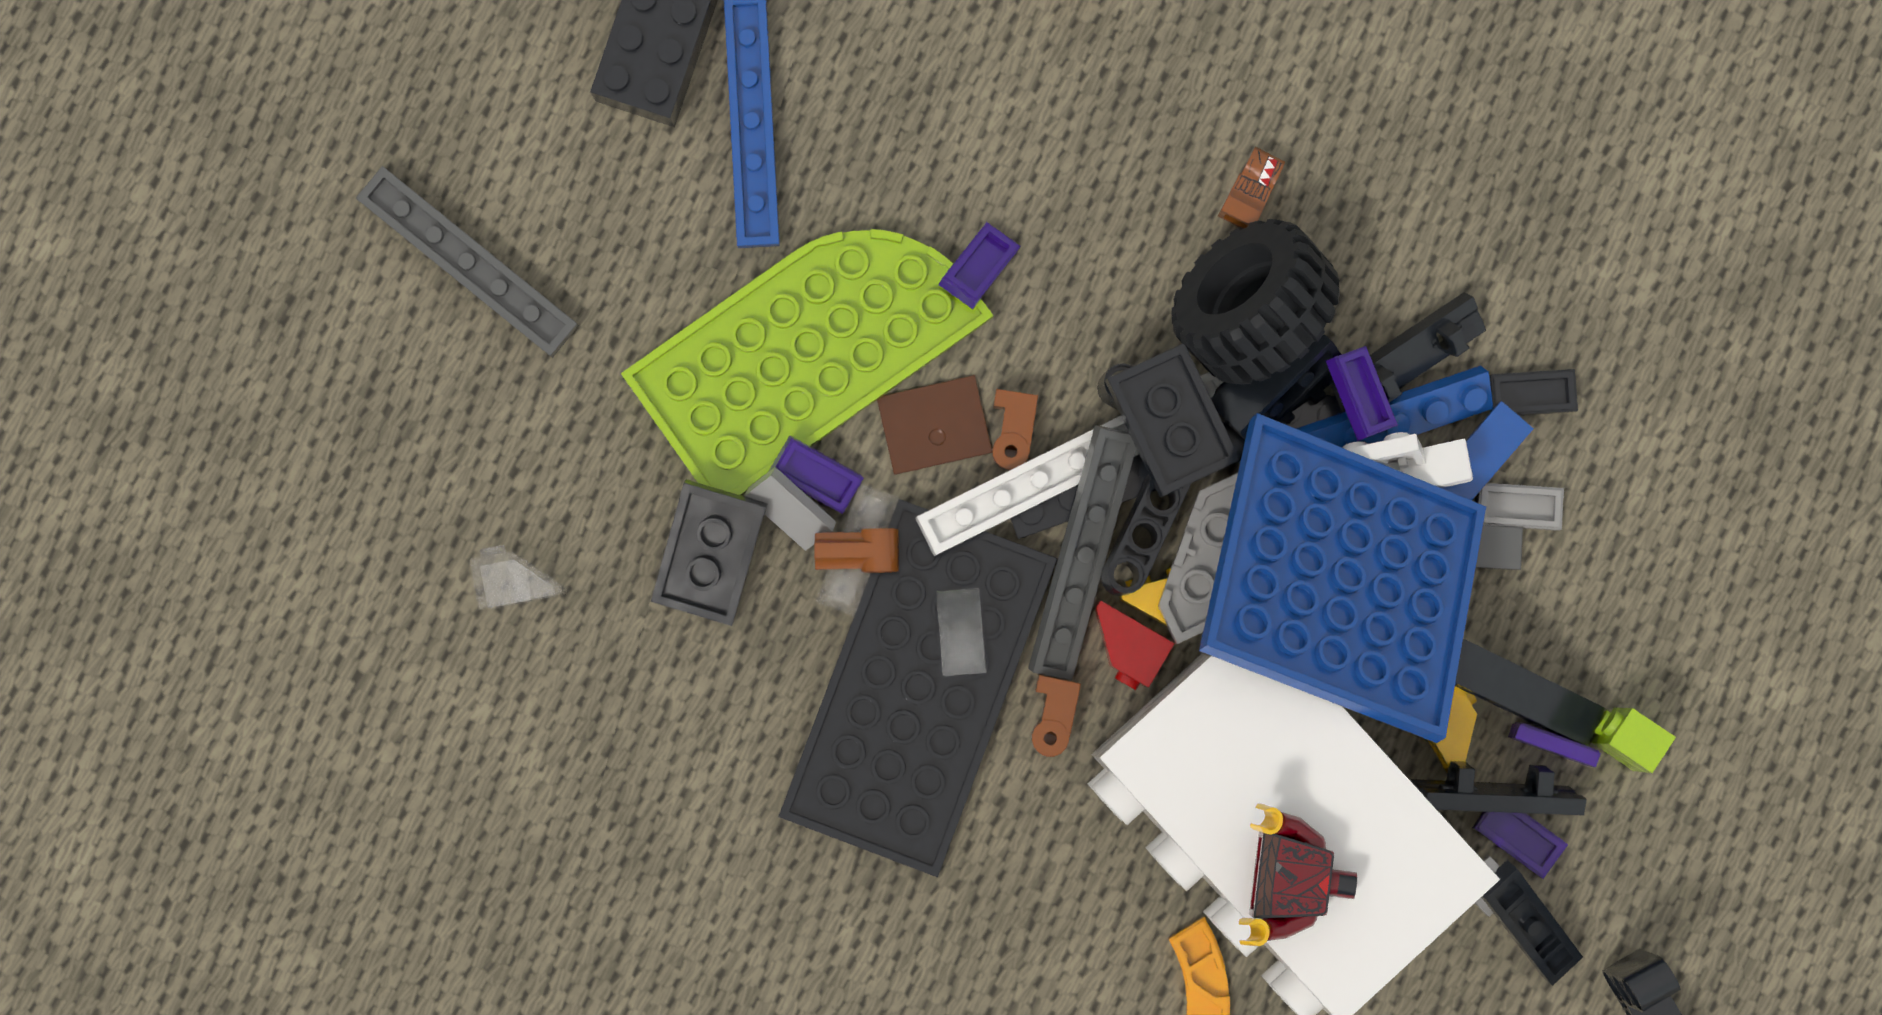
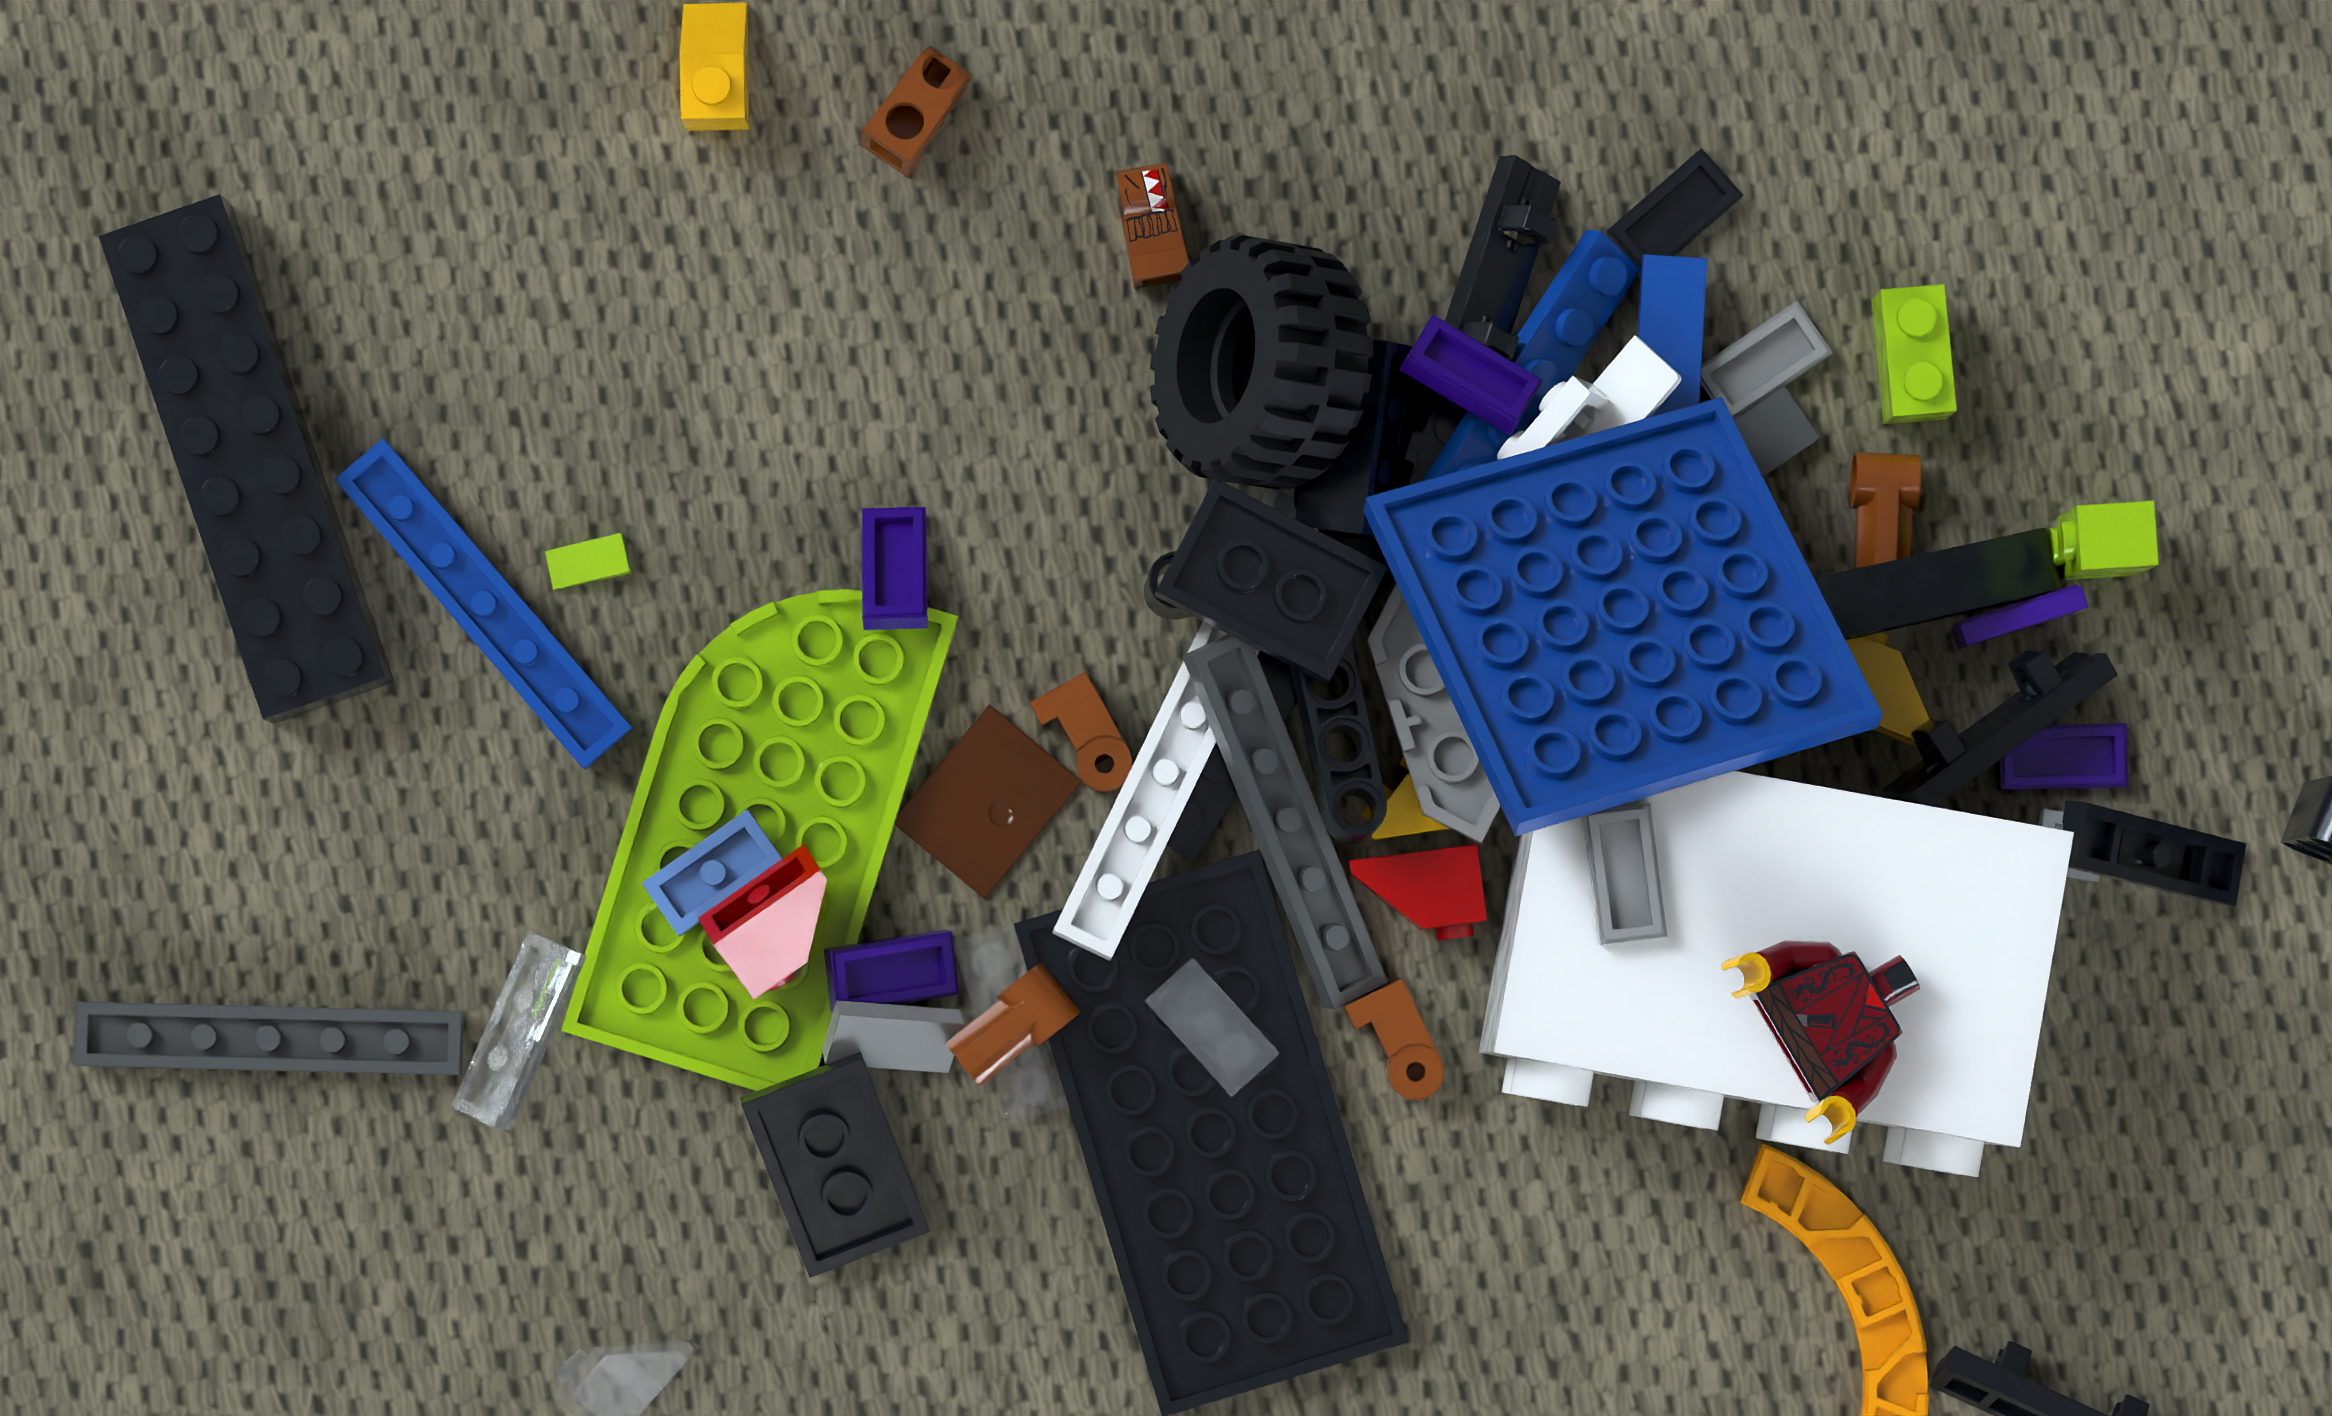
camera: 45 degrees left, 0 degrees up
(598, 357) = (518, 1031): none -> clear plate
(762, 351) = (711, 871): none -> medium blue plate
(770, 399) = (769, 922): none -> slope
(823, 141) = (588, 561): none -> lime piece
(1174, 35) = (915, 110): none -> dark orange leg
(1241, 716) = (1624, 874): none -> light grey tile
(1531, 626) = (1884, 496): none -> dark orange piece
(1604, 563) = (1914, 354): none -> lime brick

